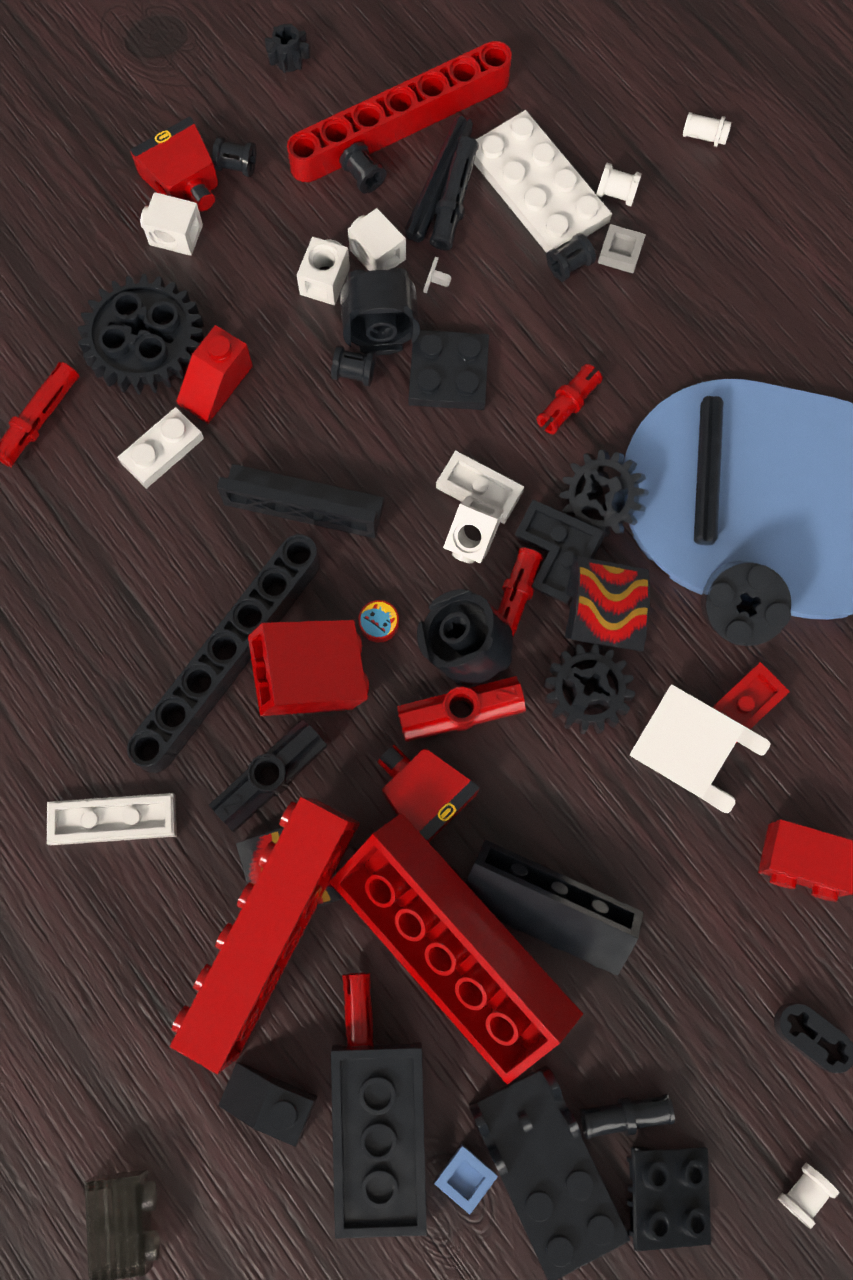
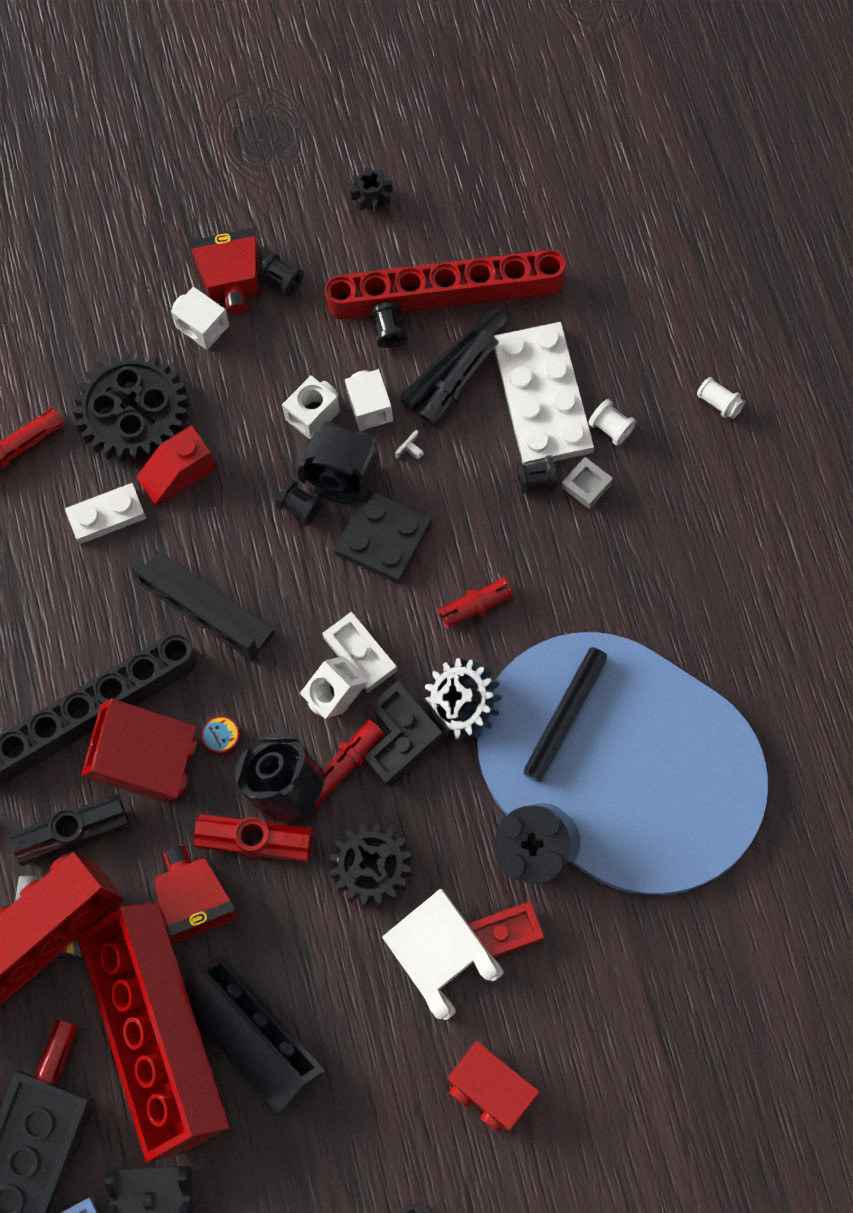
camera: 30 degrees right, 5 degrees down
(608, 603) = (420, 797): slope -> none

